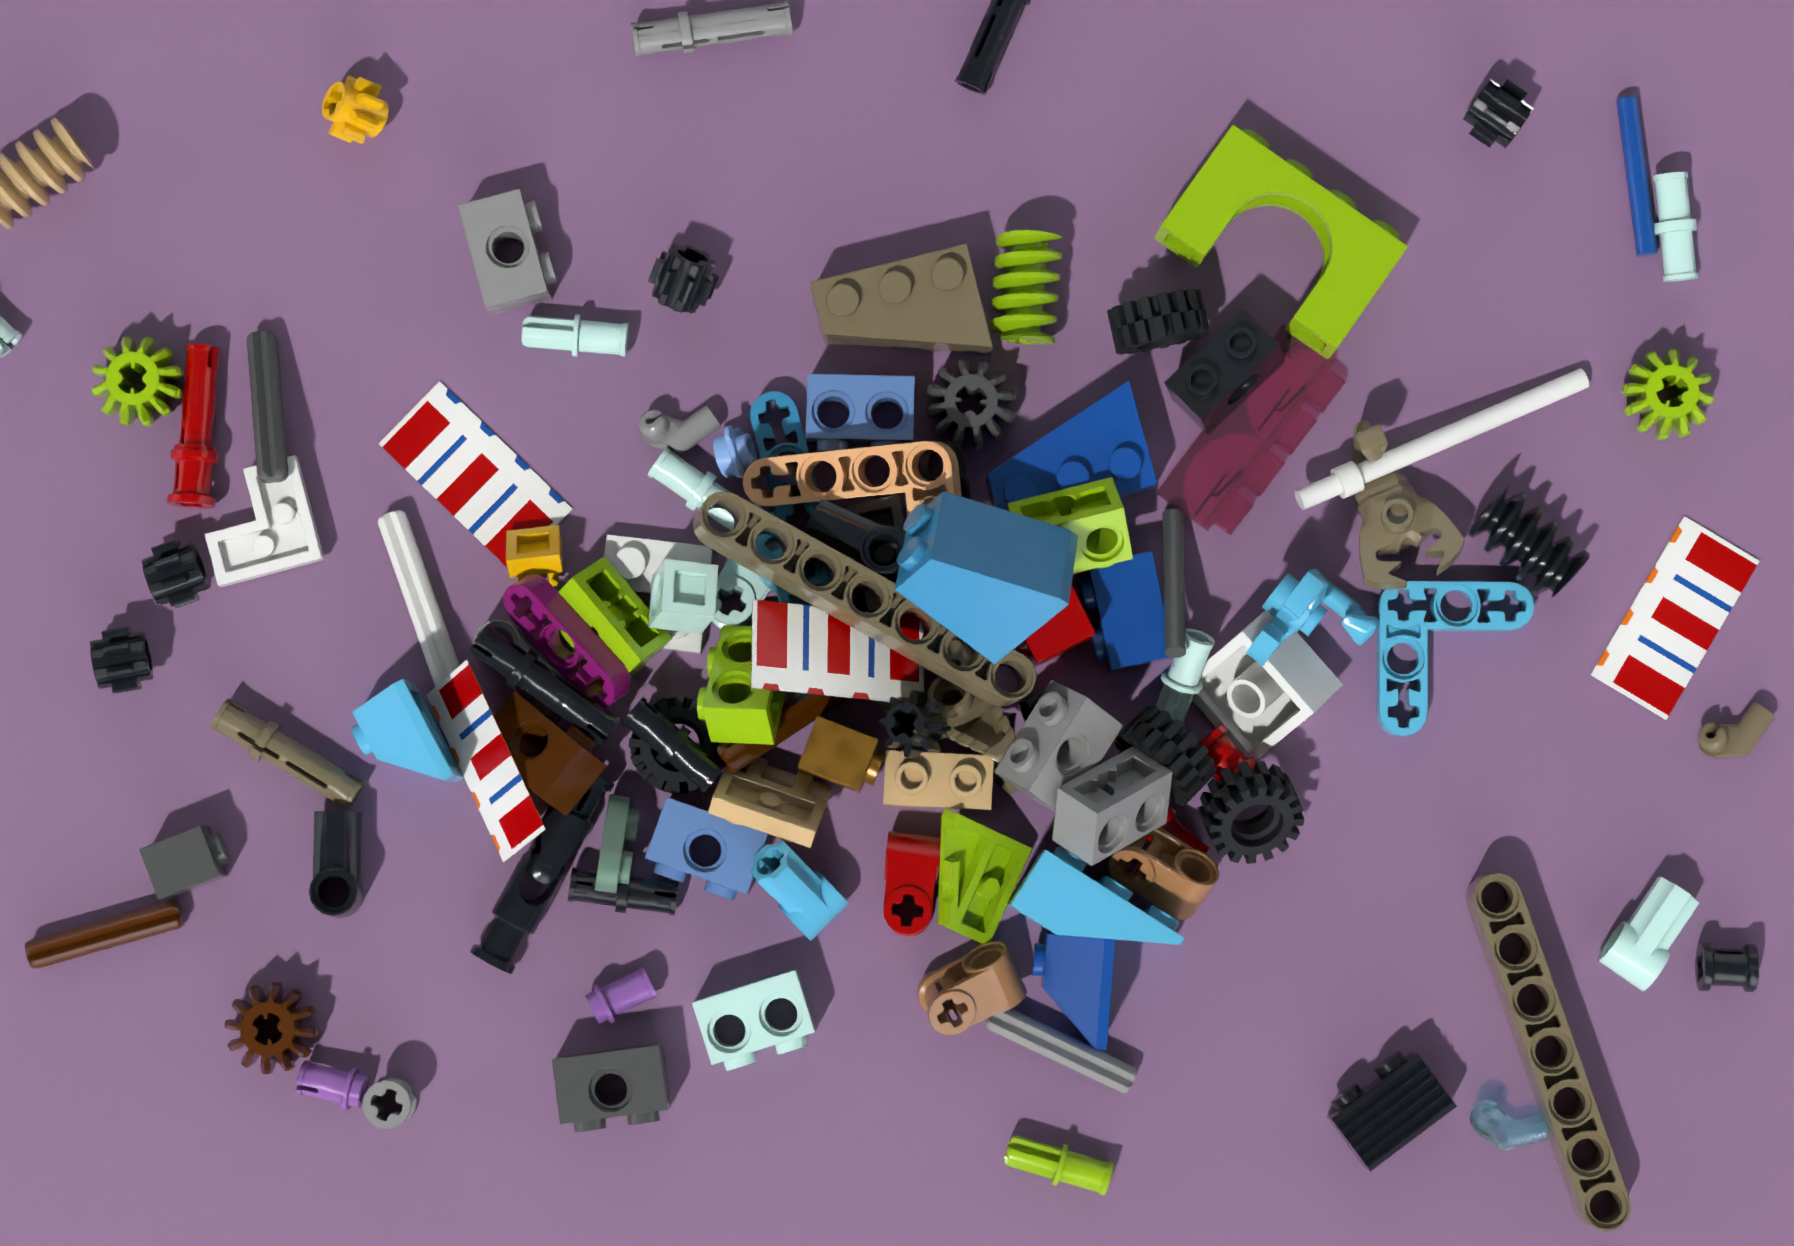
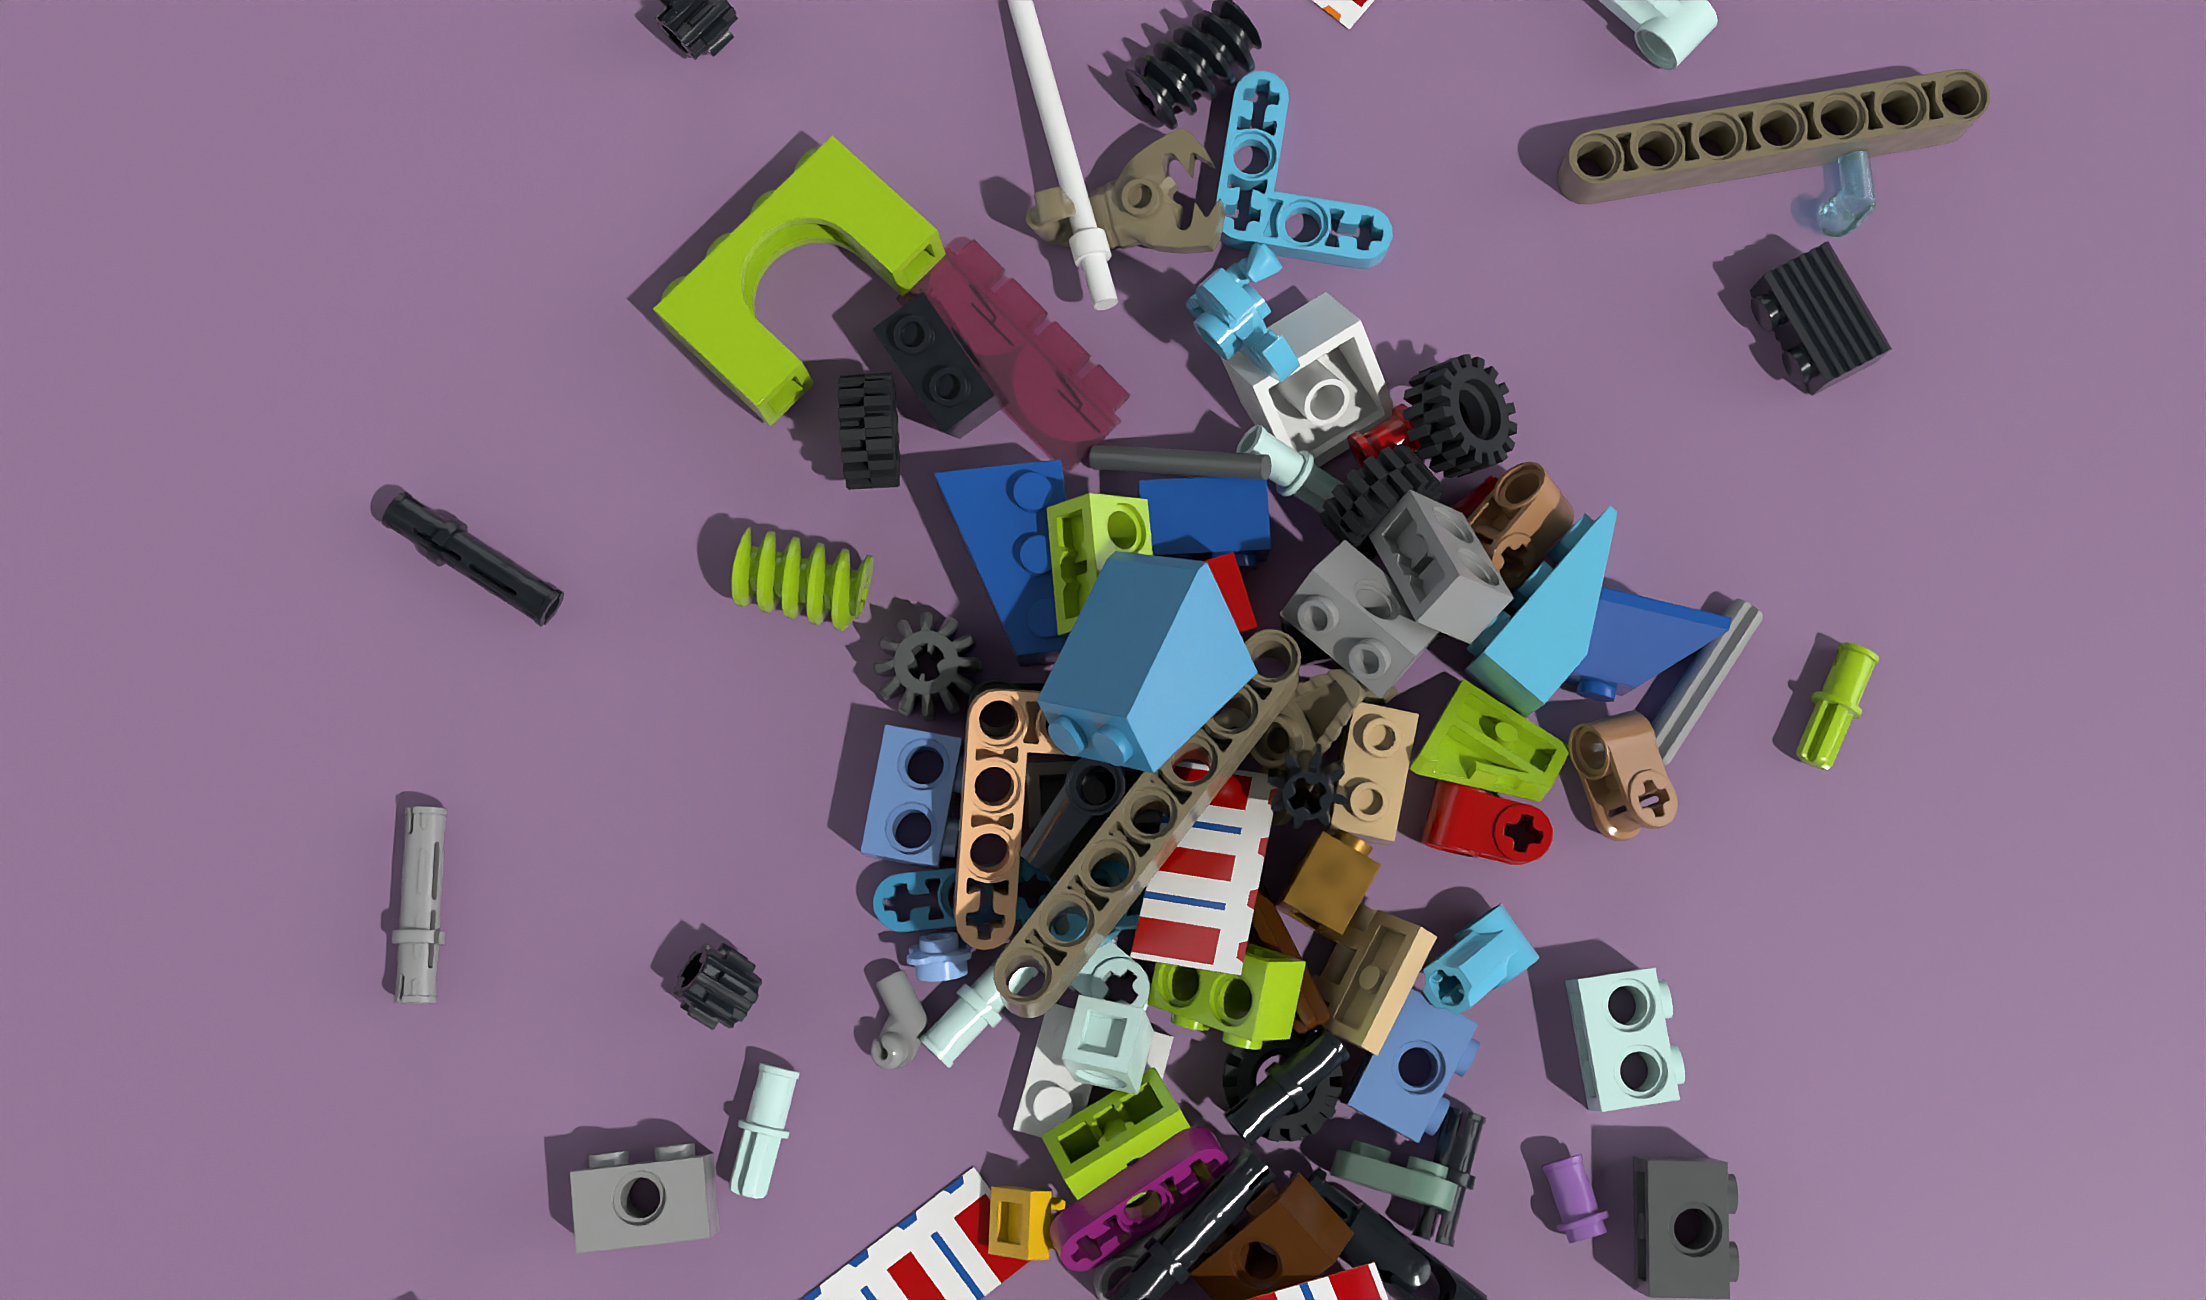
camera: 80 degrees left, 5 degrees down
(906, 303) = (796, 722): dark tan wedge -> none

